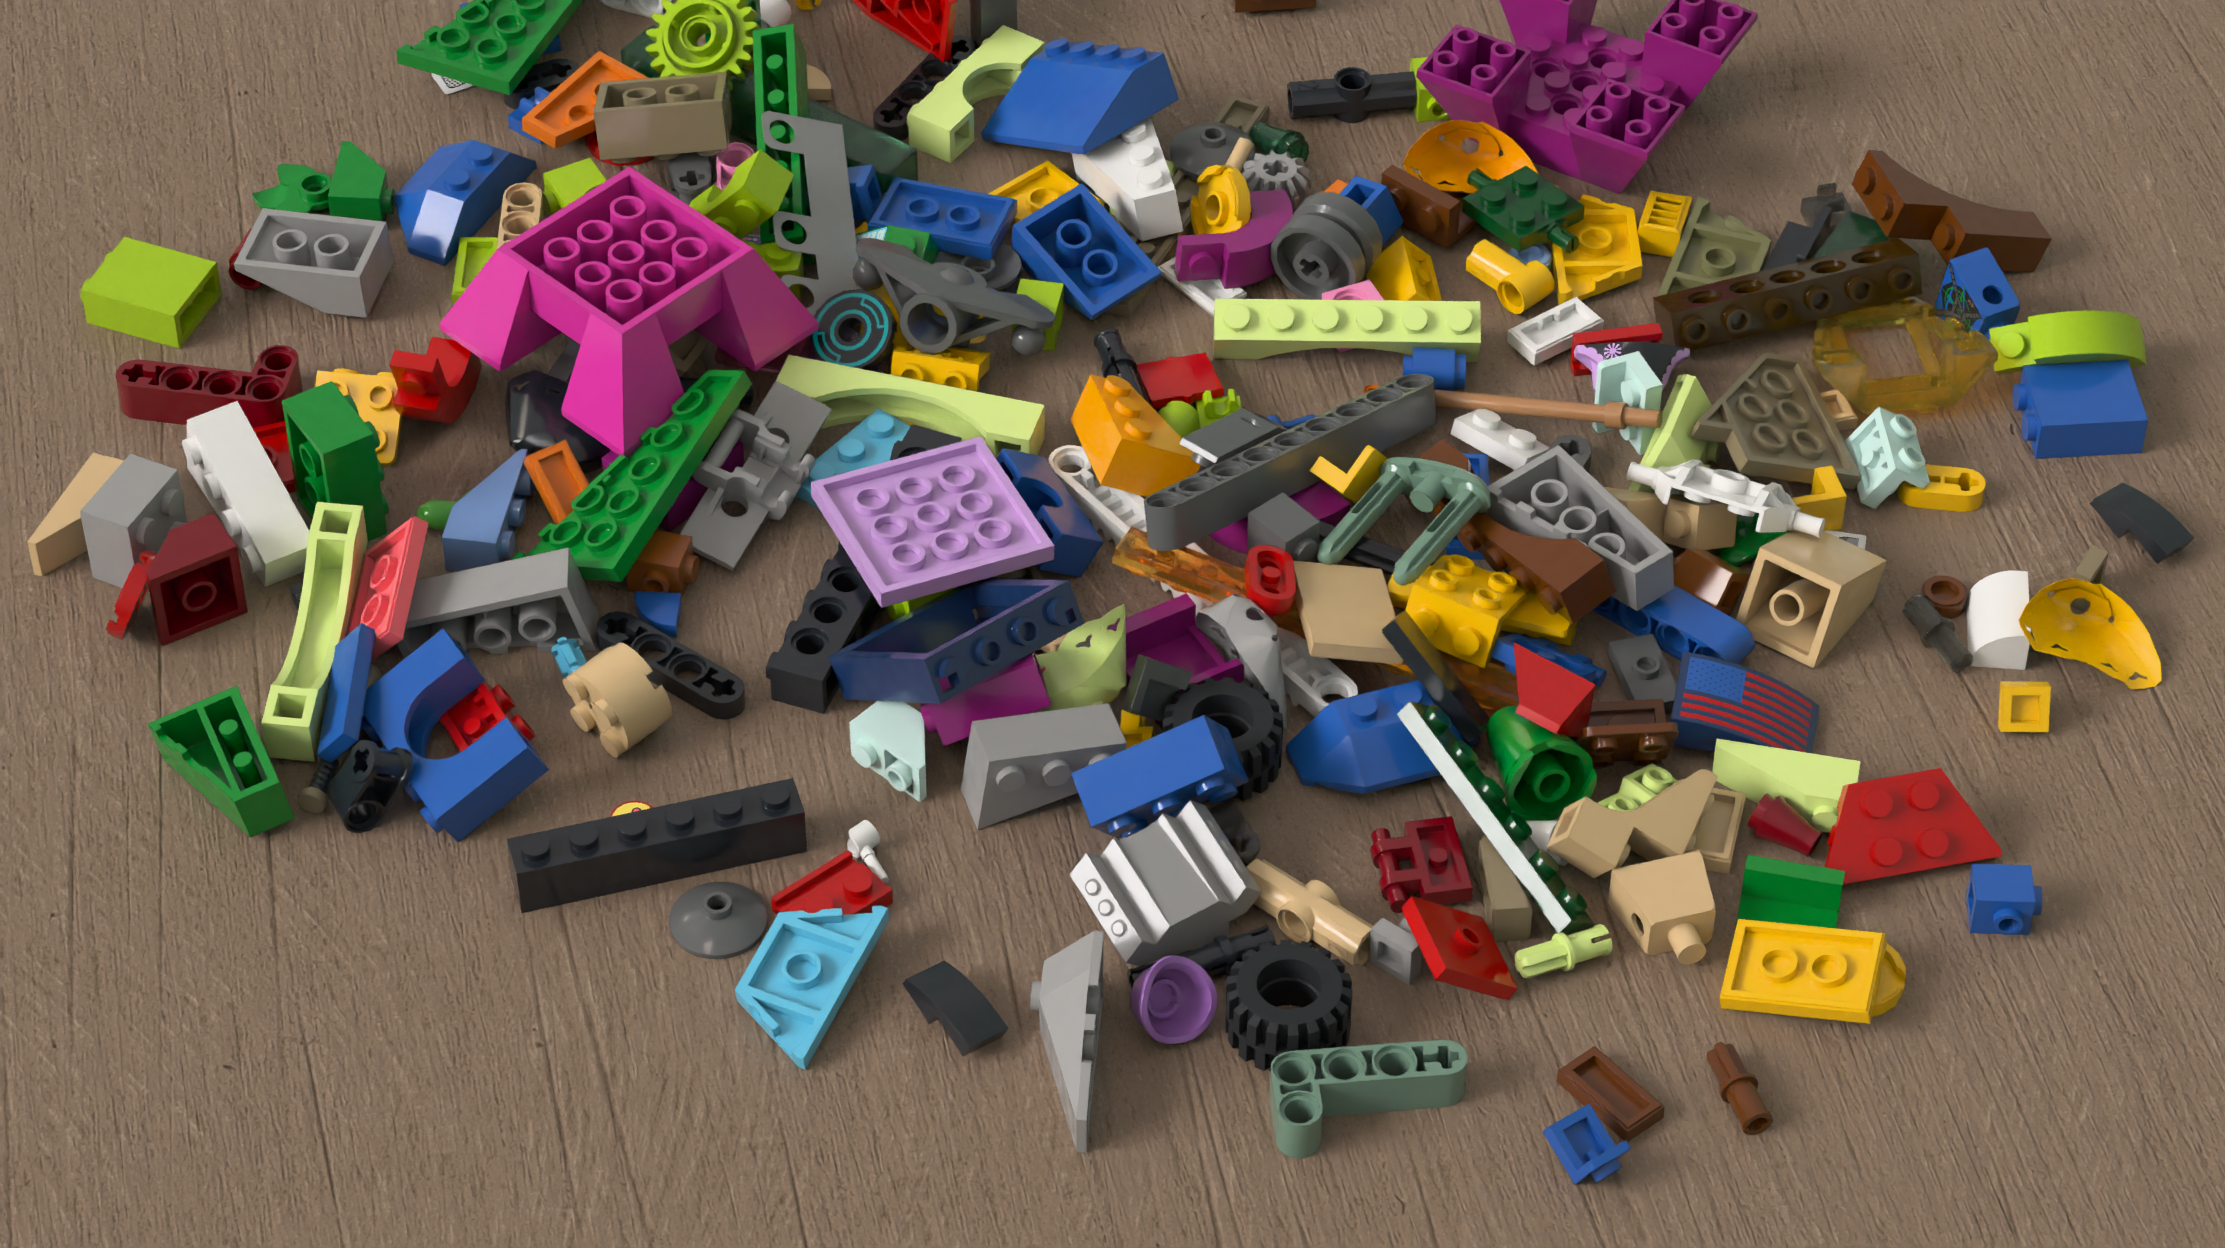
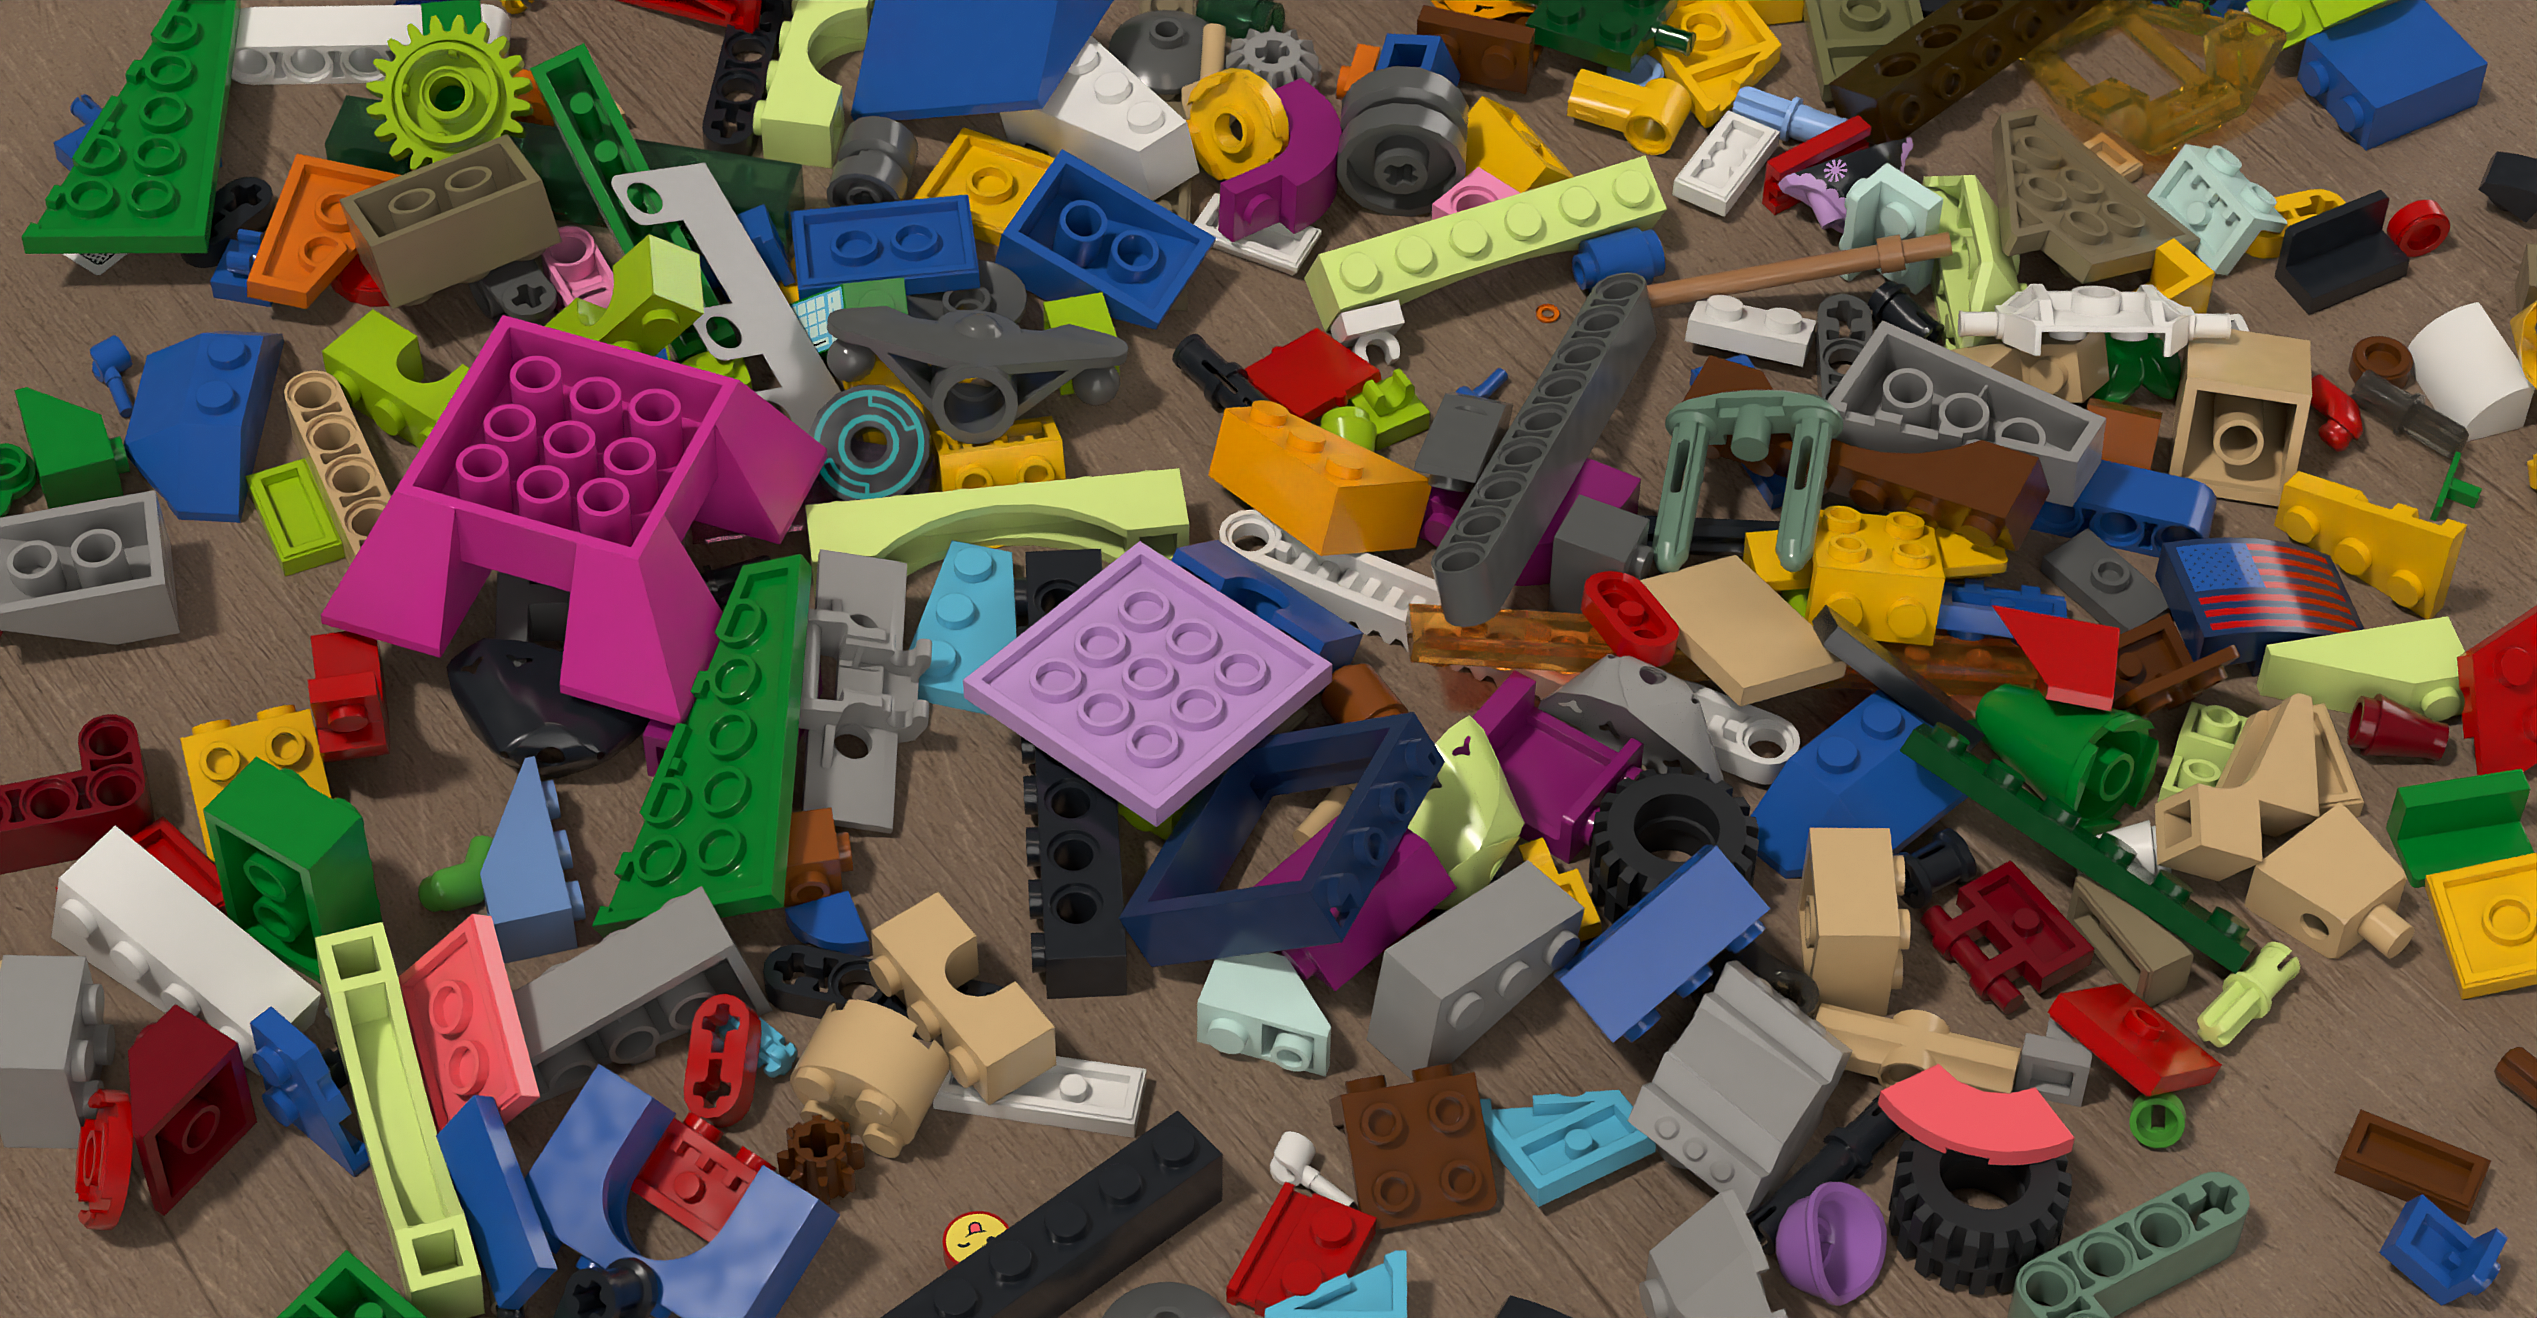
camera: 25 degrees left, 5 degrees up
(272, 596) = (302, 1089): none -> blue wing
(418, 145) = (109, 360): none -> blue hand
(539, 663) = (728, 1061): none -> red beam
(556, 478) = (600, 788): orange tile -> none
(565, 740) = (821, 1158): none -> reddish brown gear
(706, 699) = (989, 1039): none -> tan arch
(729, 746) = (1068, 1095): none -> white tile
(942, 856) = (1417, 1146): none -> reddish brown bracket
(968, 164) = (873, 163): none -> dark grey wheel
(1036, 886) = (1564, 1141): none -> medium azure wing
(1086, 585) = (1359, 695): none -> dark orange brick
(1153, 686) = (1563, 816): pearl dark grey panel -> none
(1235, 359) = (1370, 327): none -> white tile
(1291, 946) = (1989, 1125): none -> coral tile
(1309, 811) = (1852, 917): none -> tan brick
(1359, 477) = (1639, 458): yellow panel -> none
(1397, 805) = (1936, 867): none -> black bush
(1443, 1000) = (2141, 1120): none -> bright green hinge
(1612, 457) = (1895, 306): none -> black pin
(1613, 309) = (1787, 116): none -> light blue axle
(1846, 701) = (2379, 545): none -> yellow wing
(1888, 619) = (2340, 409): none -> red arm
(1940, 691) = (2455, 490): none -> green piece
(1959, 514) = (2339, 254): none -> black panel
(2028, 515) = (2419, 227): none -> red tile

